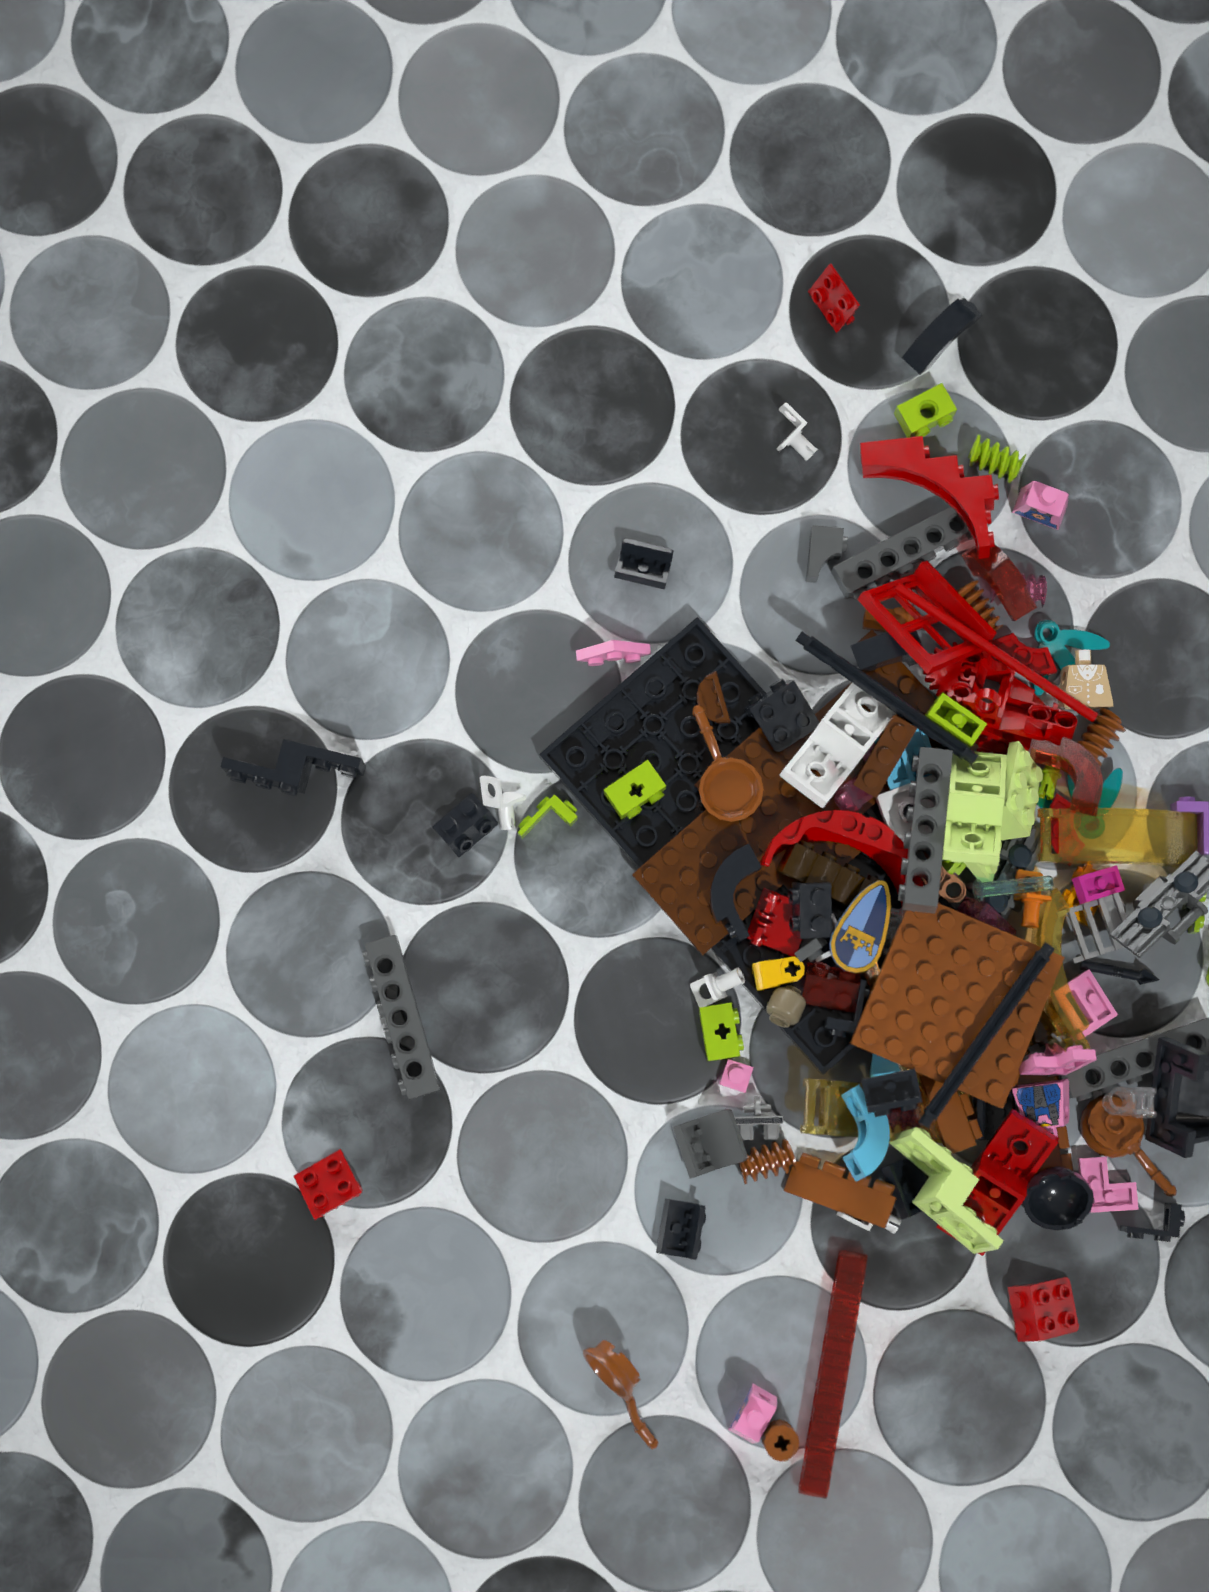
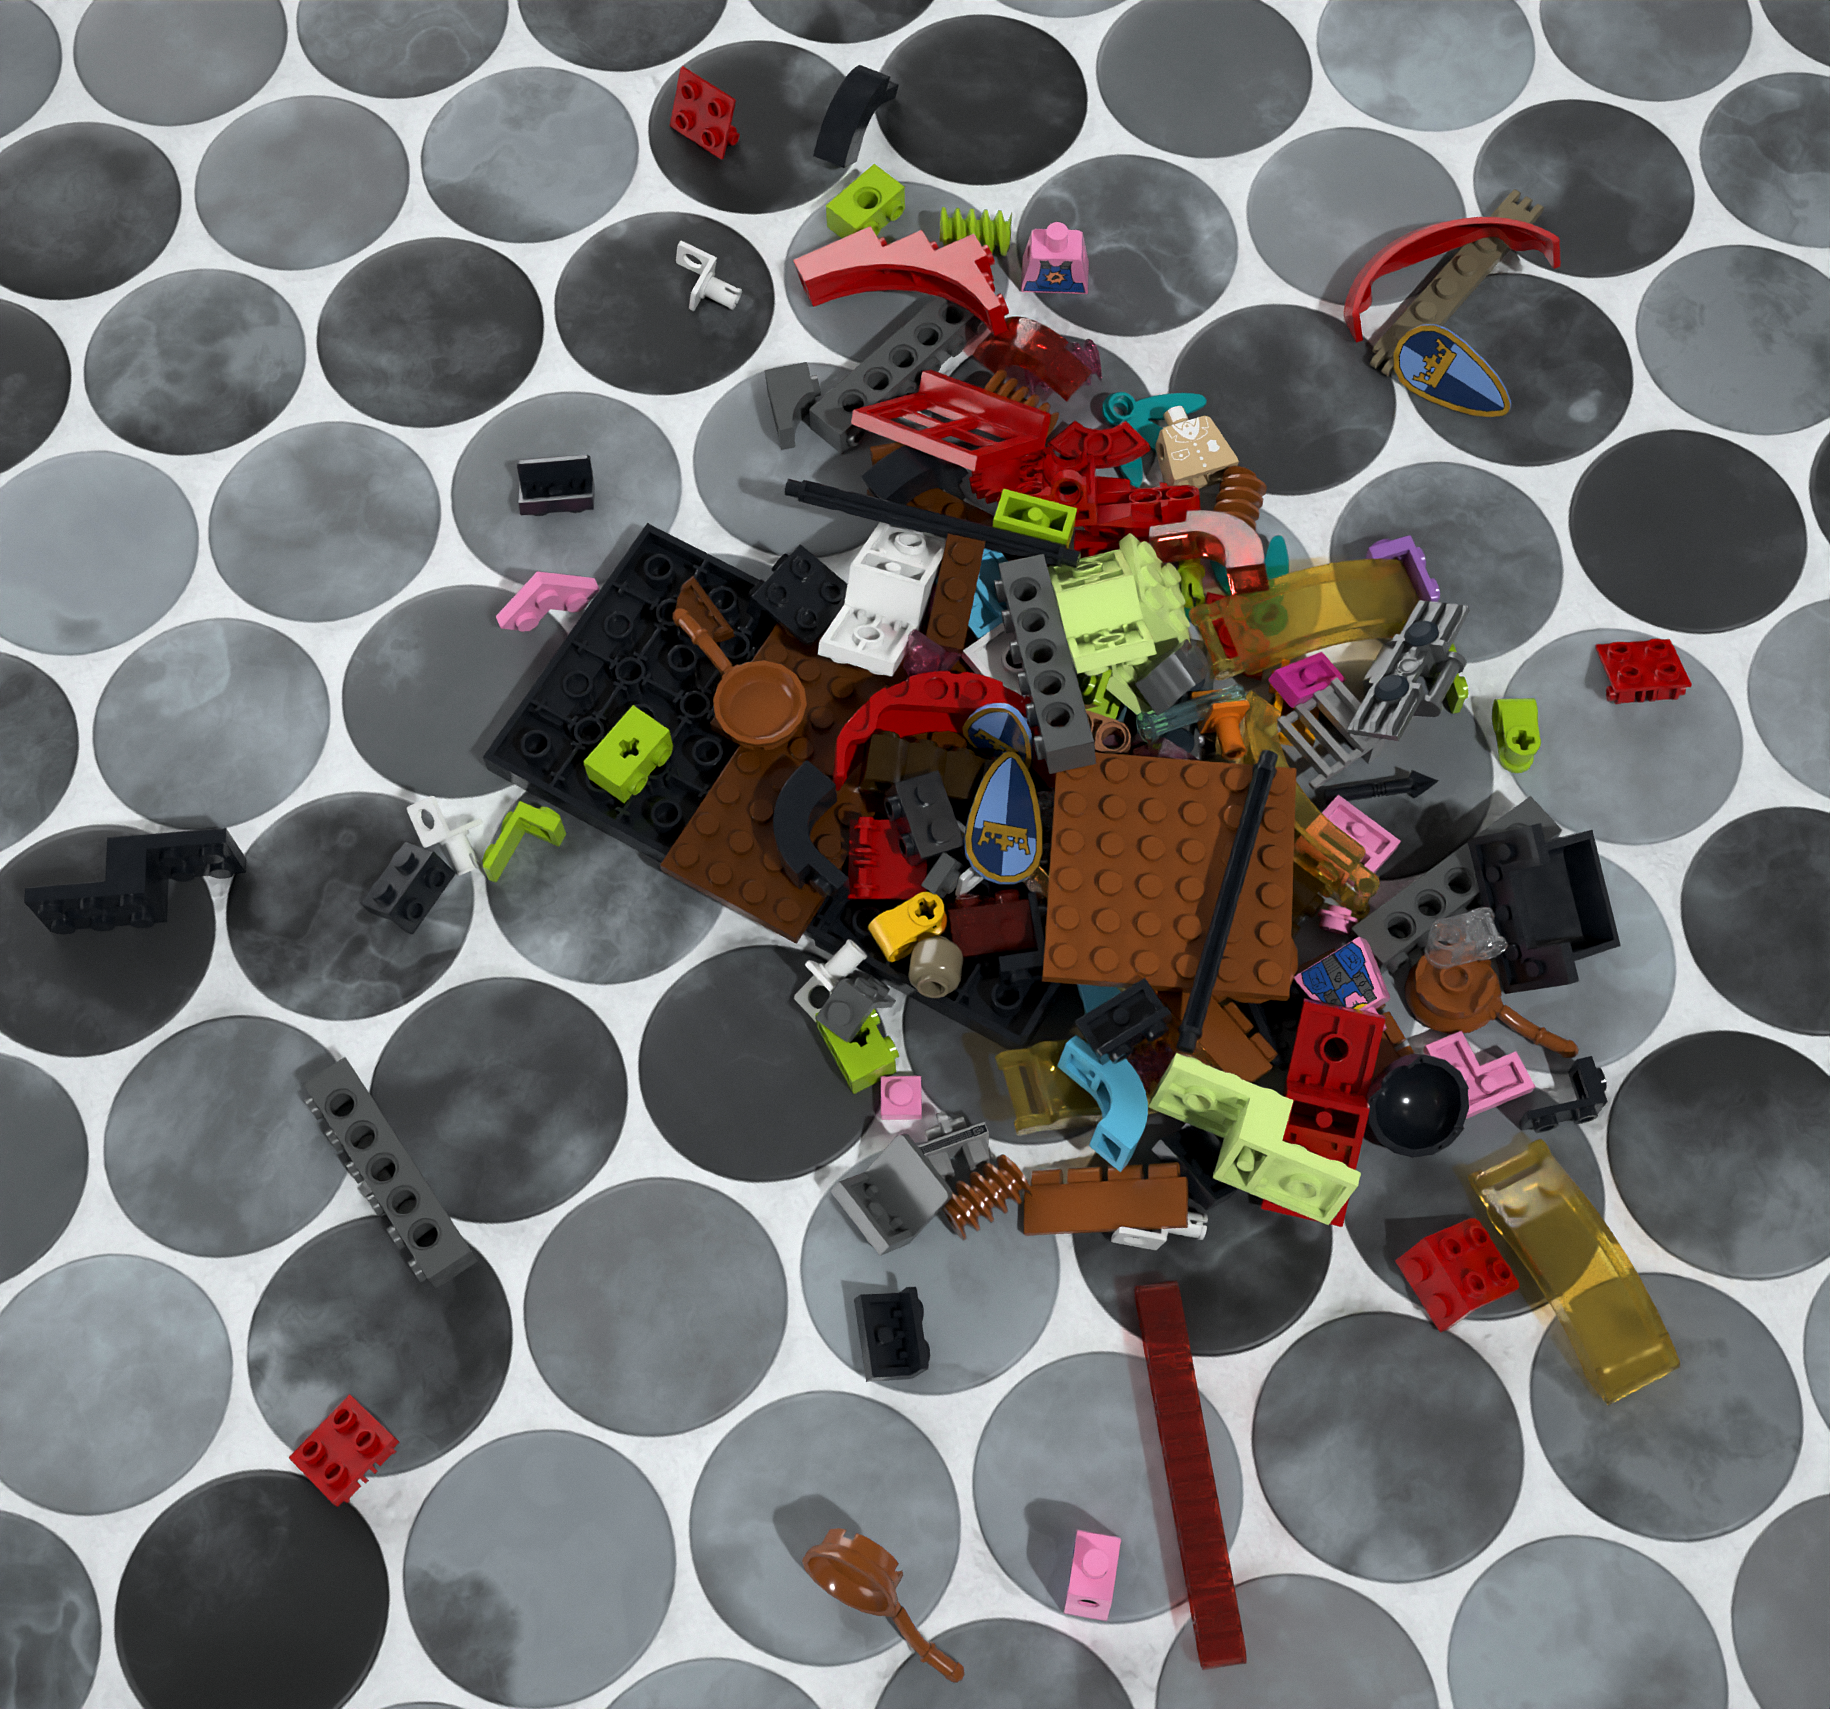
camera: 15 degrees left, 15 degrees down
(727, 1010) = (852, 1004): none -> dark grey bracket
(790, 1440) = (1145, 1574): dark orange piece -> none
(880, 869) = (998, 730): none -> shield
(995, 652) = (1058, 436): red piece -> none
(1014, 859) = (1172, 675): none -> dark grey arch
(1059, 1063) = (1345, 917): bright pink plate -> none
(1117, 1335) = (1579, 1272): none -> clear yellow windscreen

